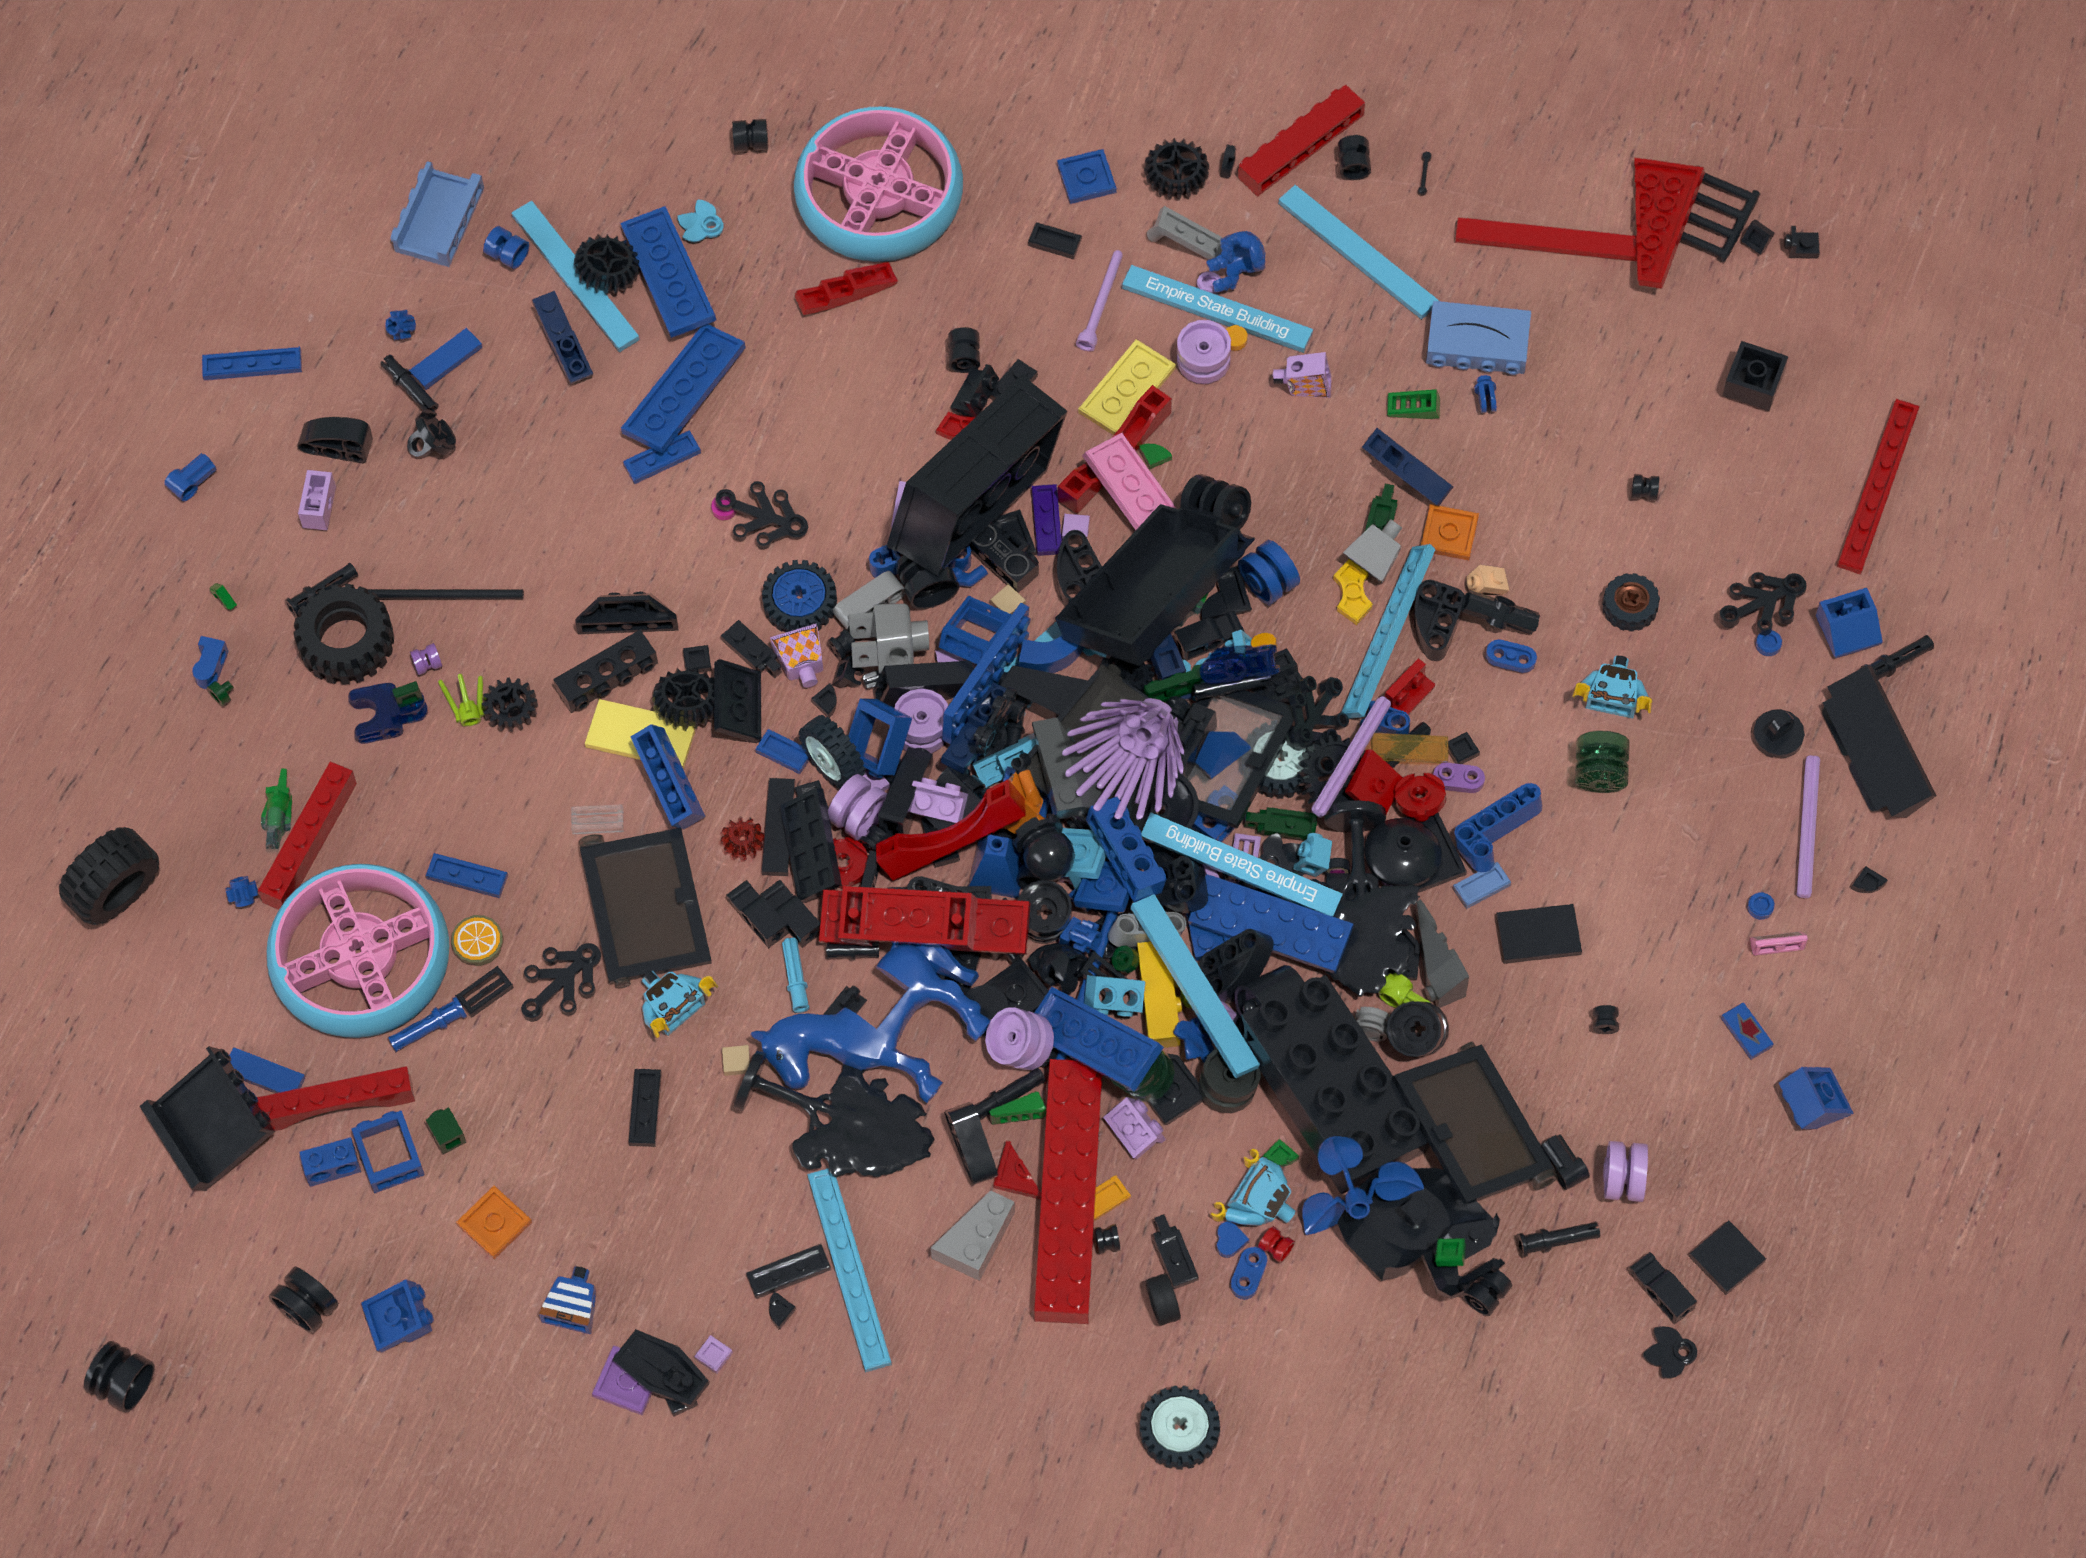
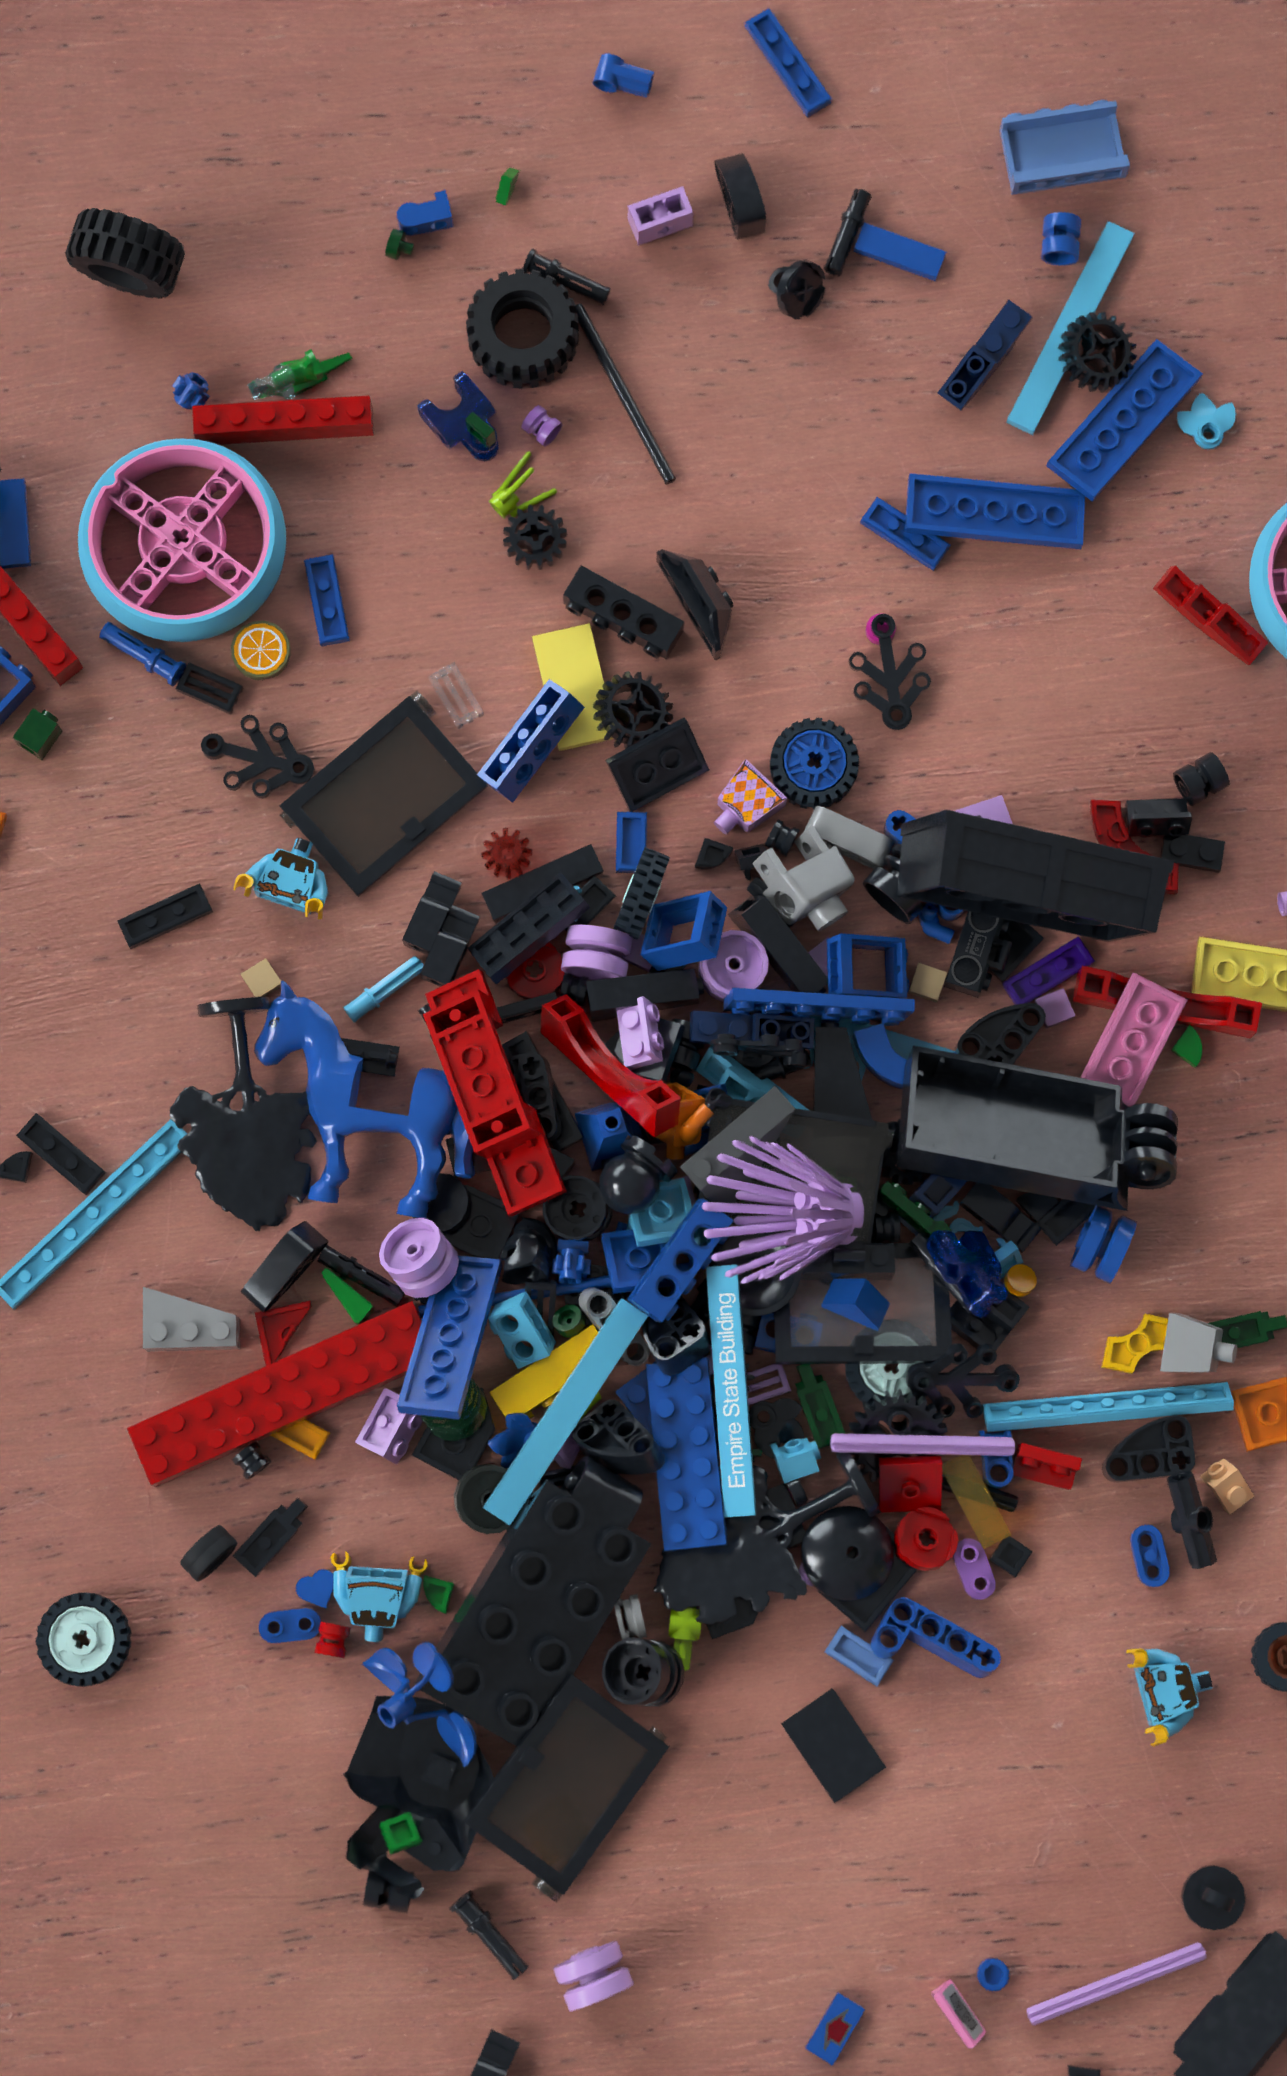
camera: 60 degrees right, 15 degrees up
(400, 324) = (910, 183): blue gear -> none
(698, 658) = (689, 697): black tile -> none
(751, 649) = (730, 745): black hinge -> none
(1443, 970) = (731, 1660): dark grey wedge -> none
(1569, 1169) = (575, 1906): black piece -> none
(1602, 761) = (1066, 1720): clear green wheel -> none
(1605, 1019) = (766, 1867): black wheel -> none

